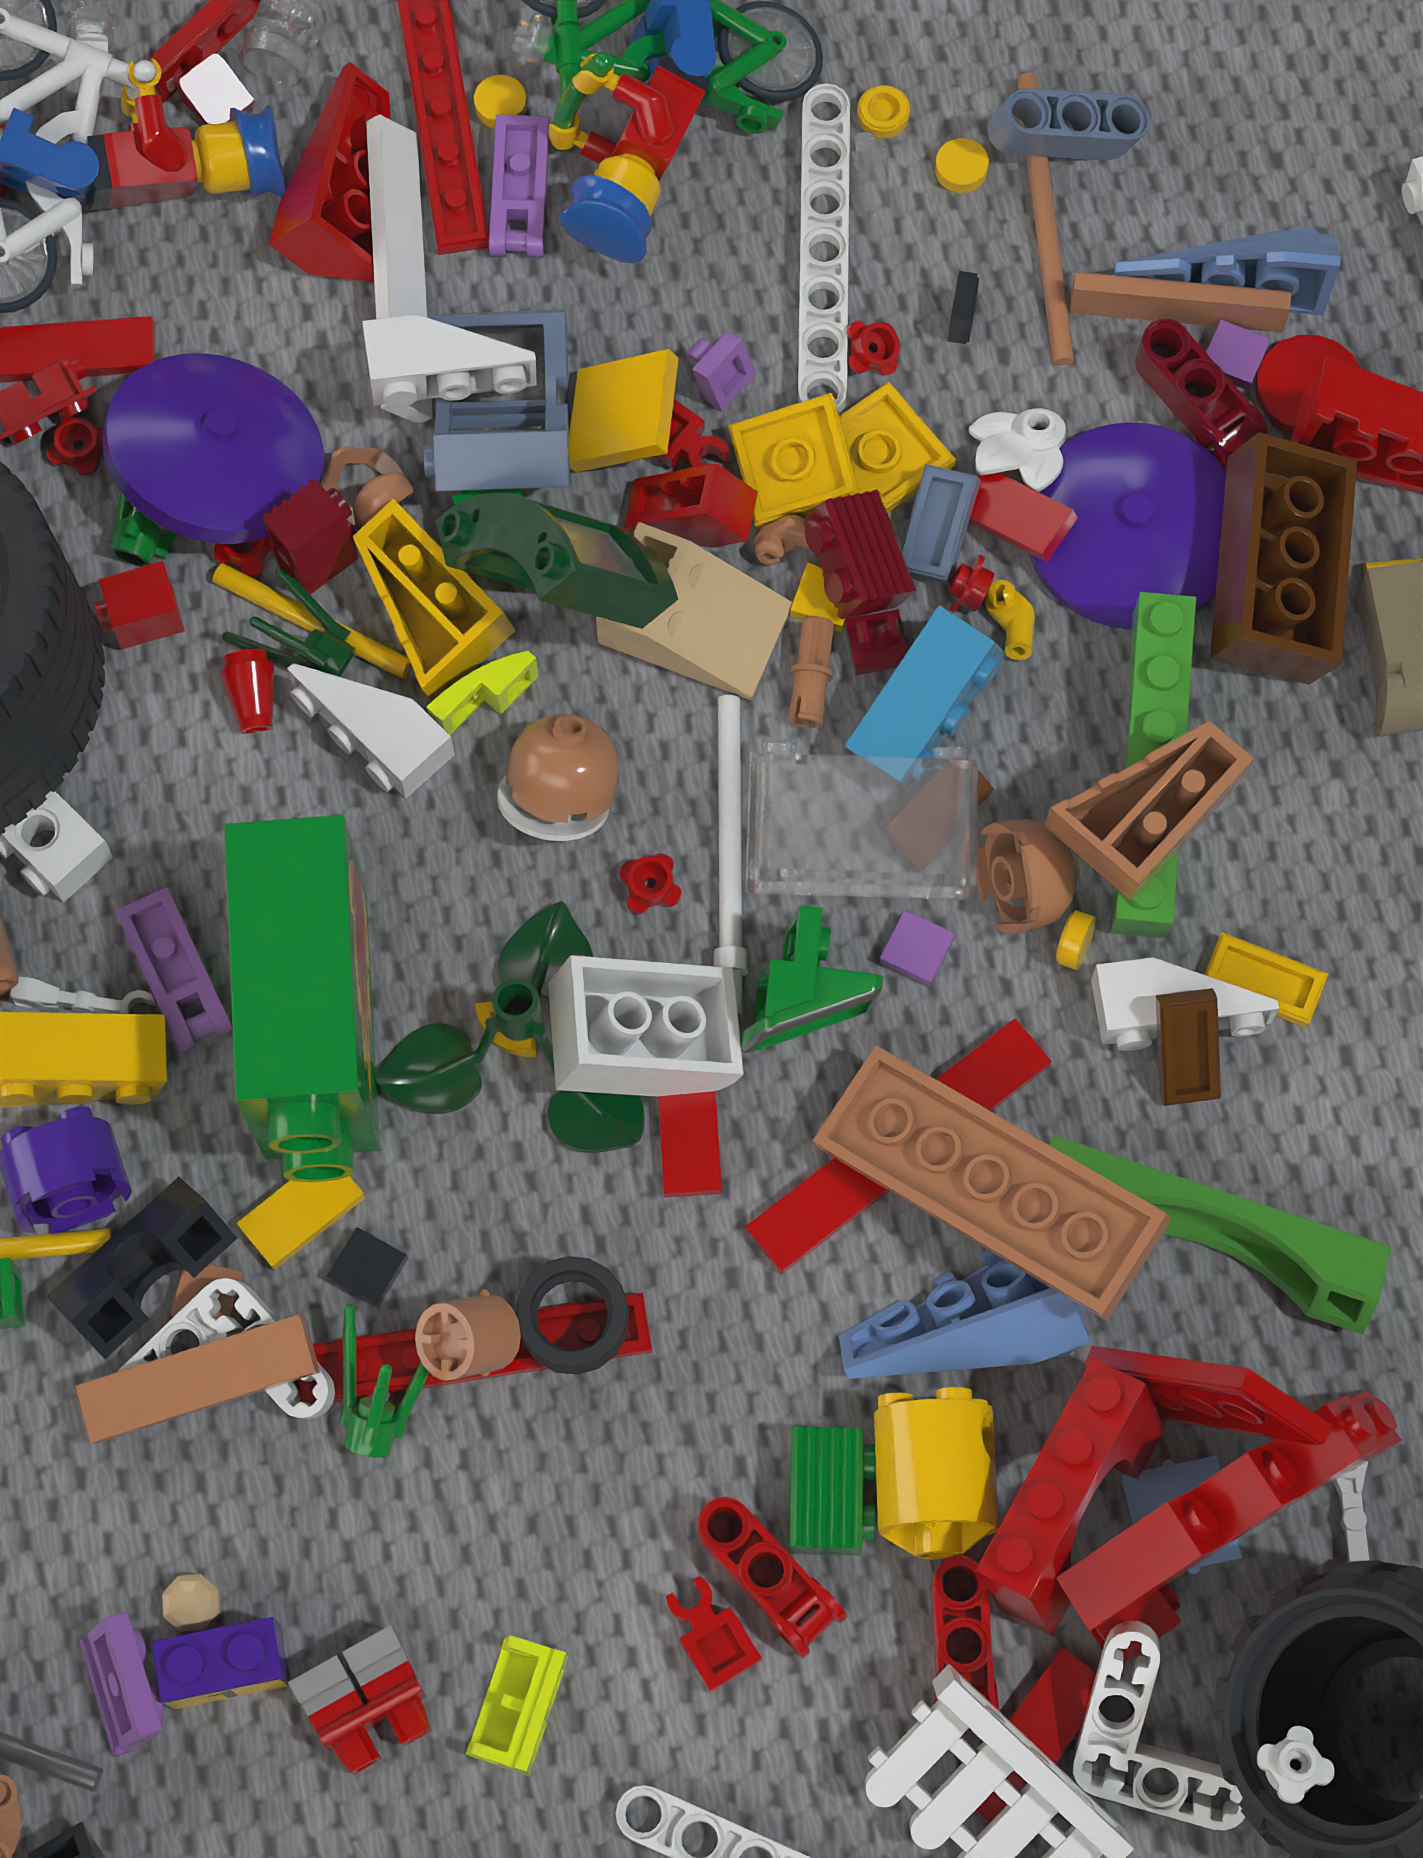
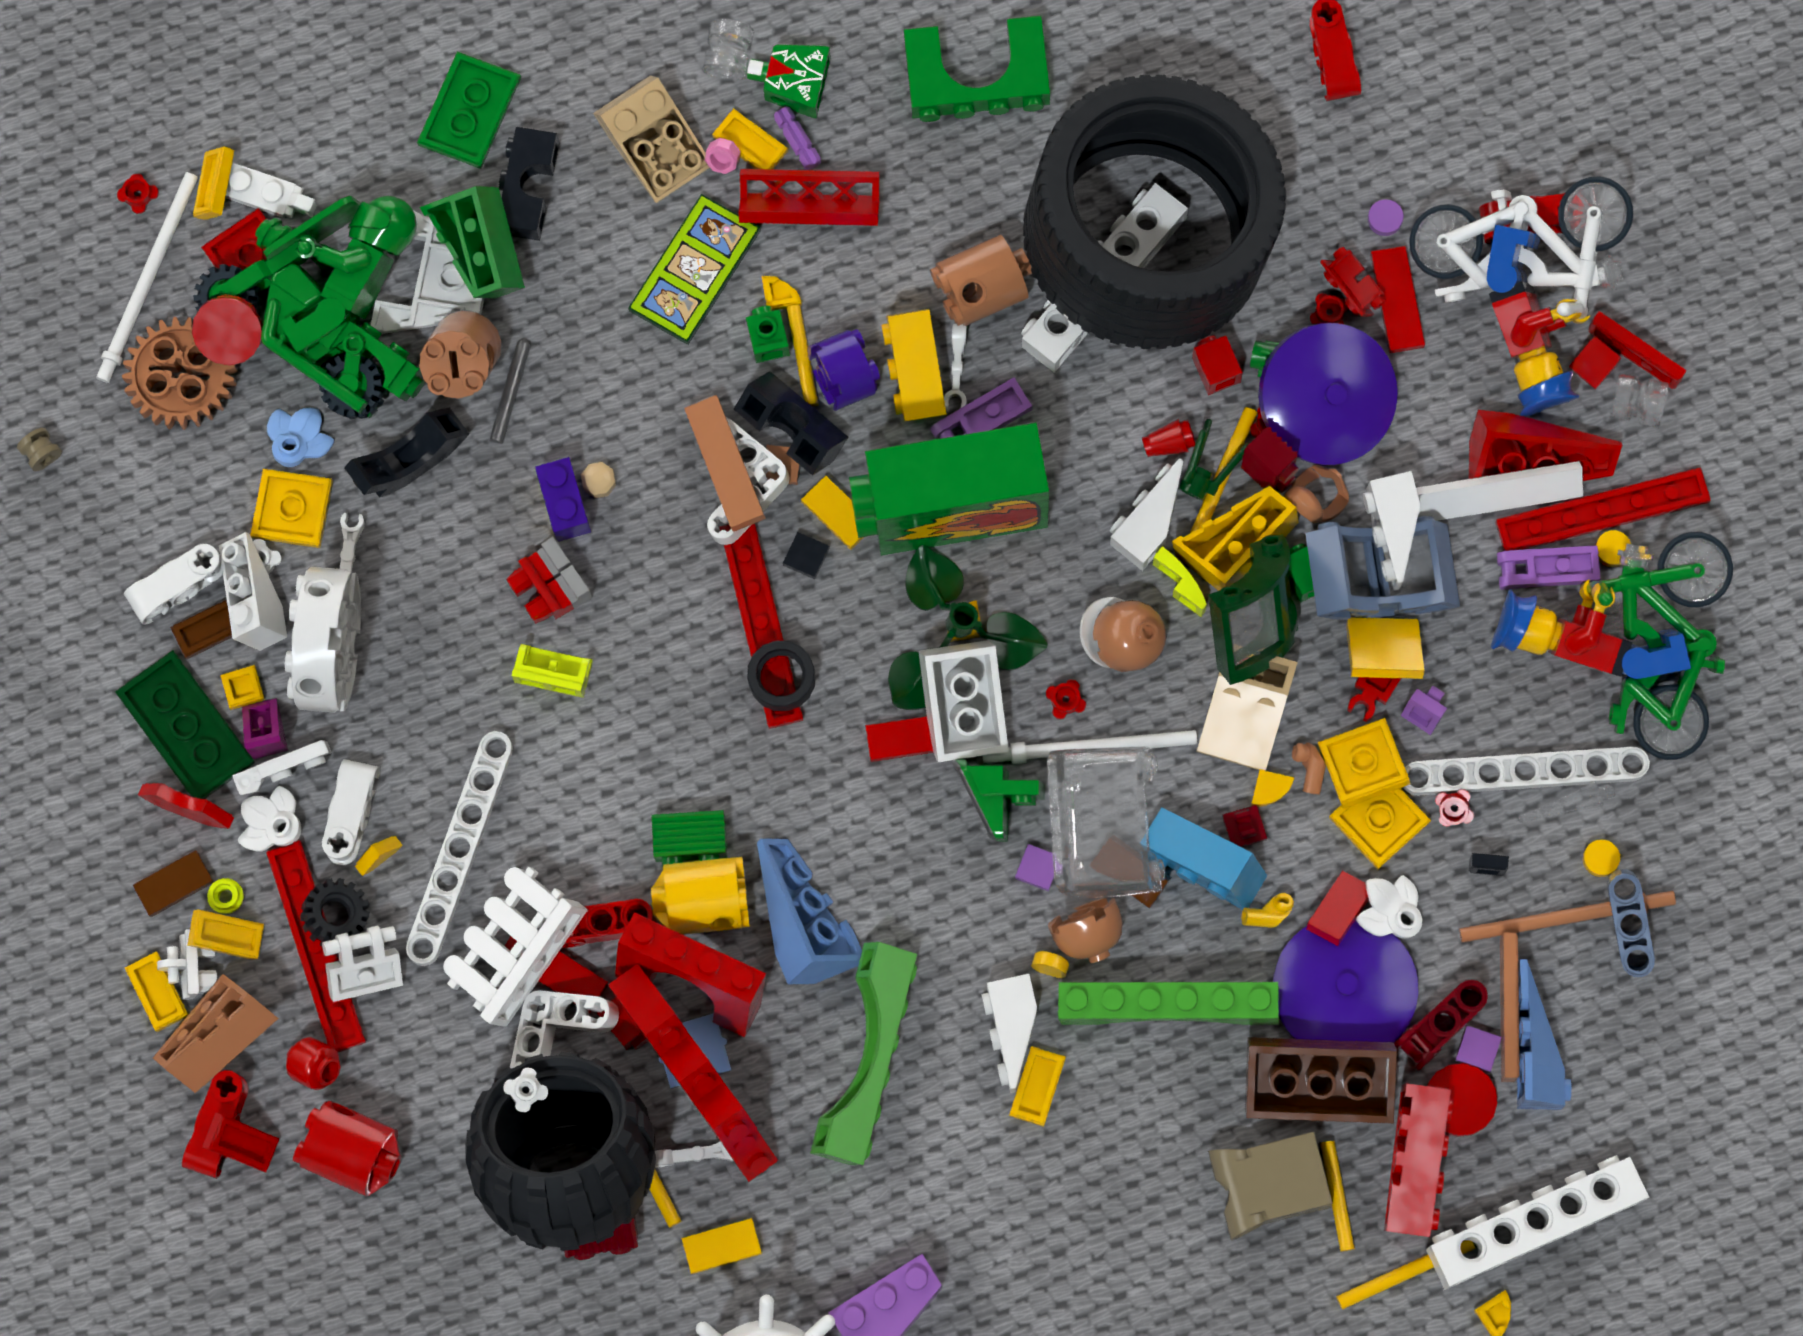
camera: 90 degrees right, 5 degrees up
(116, 1669) = (559, 440): medium lavender plate -> none
(373, 1422) = (711, 568): green plant -> none
(467, 1336) = (759, 613): nougat piece -> none
(694, 504) = (1322, 700): red arch -> none
(717, 1643) = (596, 781): red plate -> none
(785, 1602) = (627, 822): red piece -> none
(811, 673) = (1214, 786): nougat axle -> none
(840, 1193) = (909, 866): red tile -> none
(858, 554) = (1296, 806): dark red brick -> none
(883, 111) = (1637, 803): yellow tile -> none
(939, 523) = (1329, 858): sand blue tile -> none
(970, 585) = (1287, 882): red plate -> none
(992, 1182) = (877, 912): nougat plate -> none
(1149, 810) = (1119, 991): nougat wedge -> none
(1188, 1046) = (982, 1035): reddish brown tile -> none
(1217, 1396) = (748, 1043): red tile -> none

